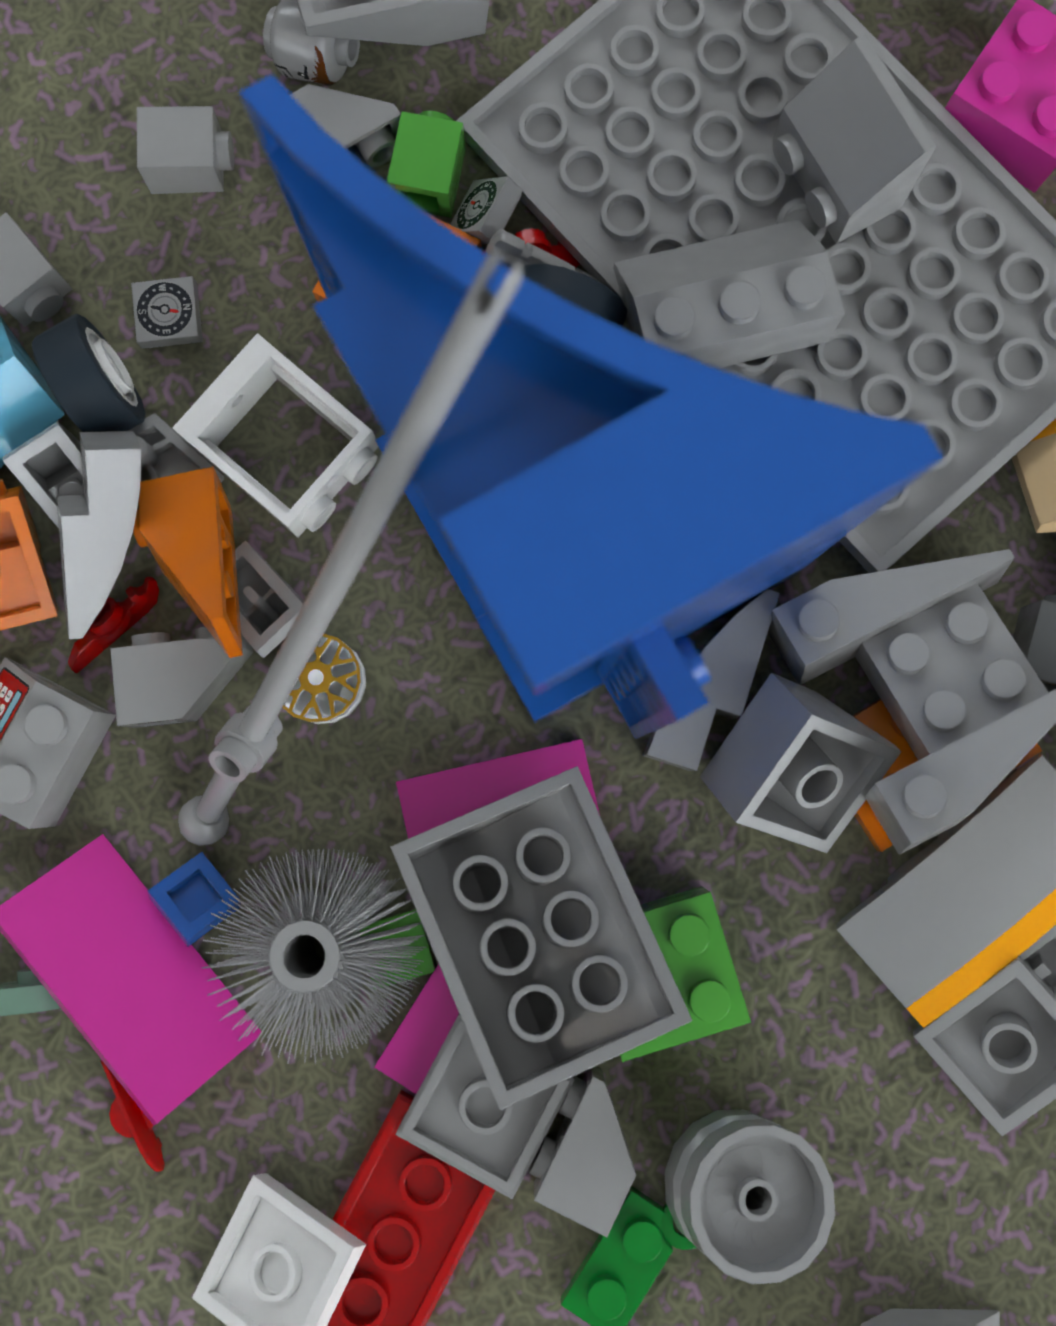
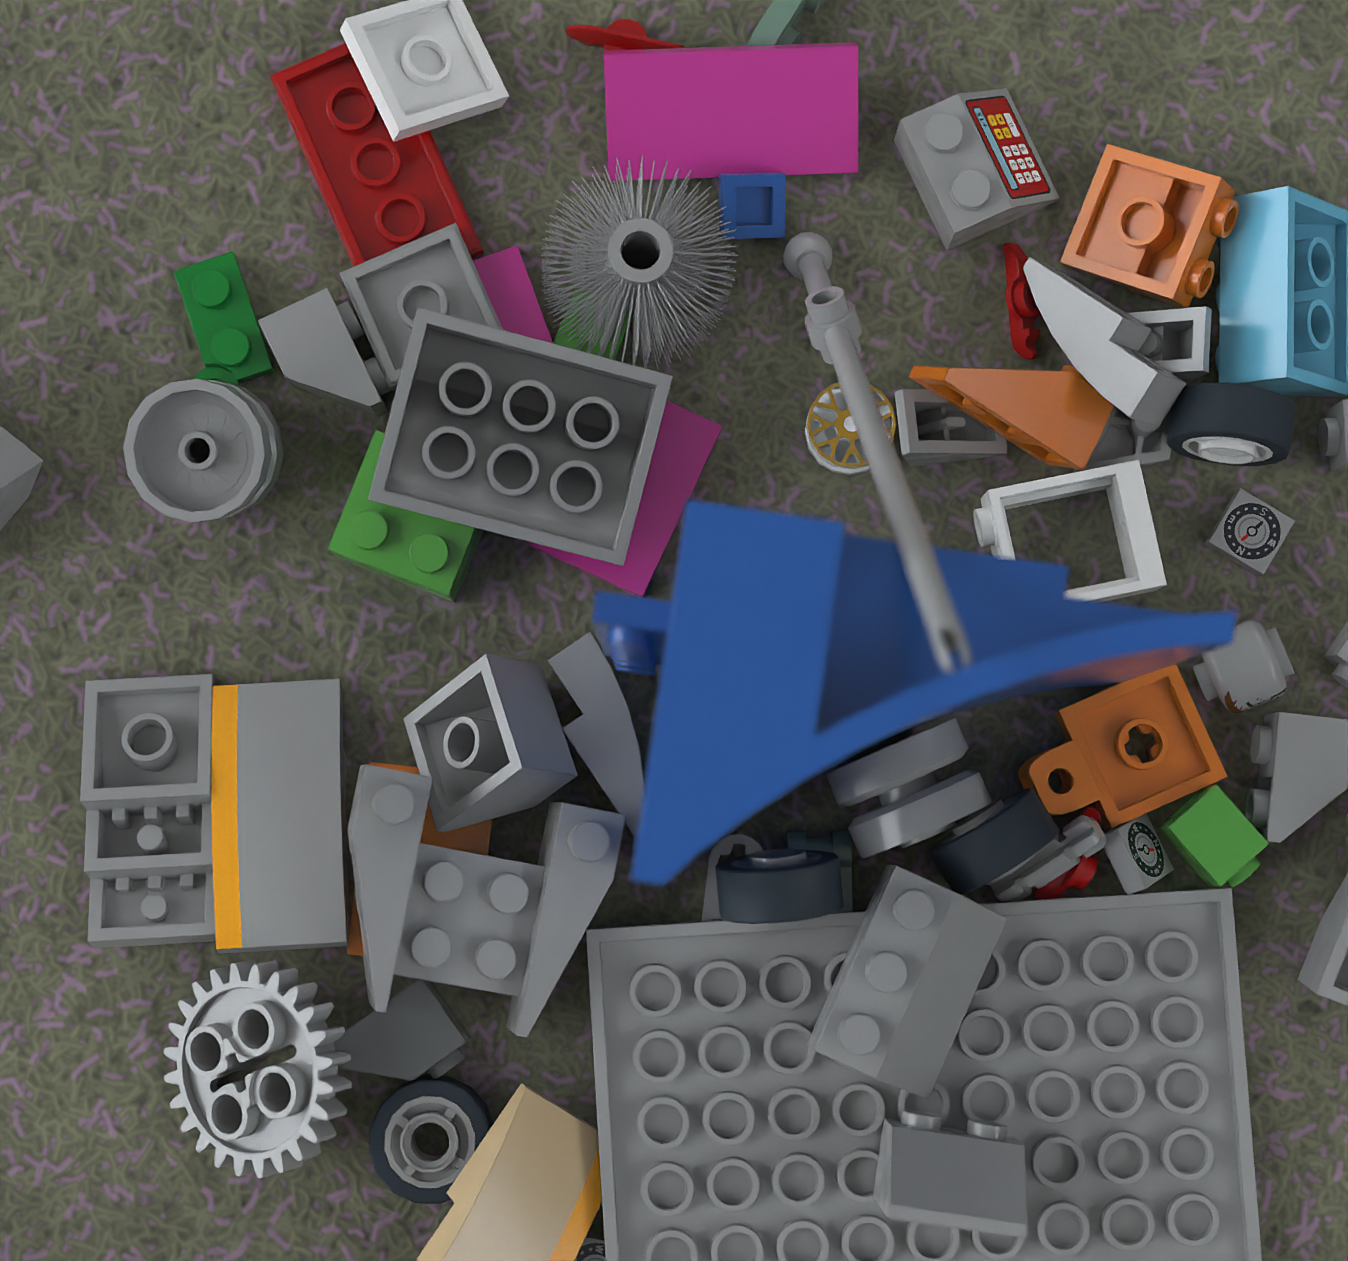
camera: 125 degrees right, 0 degrees up
(169, 679) = (939, 308): light grey slope -> none
(268, 237) = (1247, 670): none -> light grey head

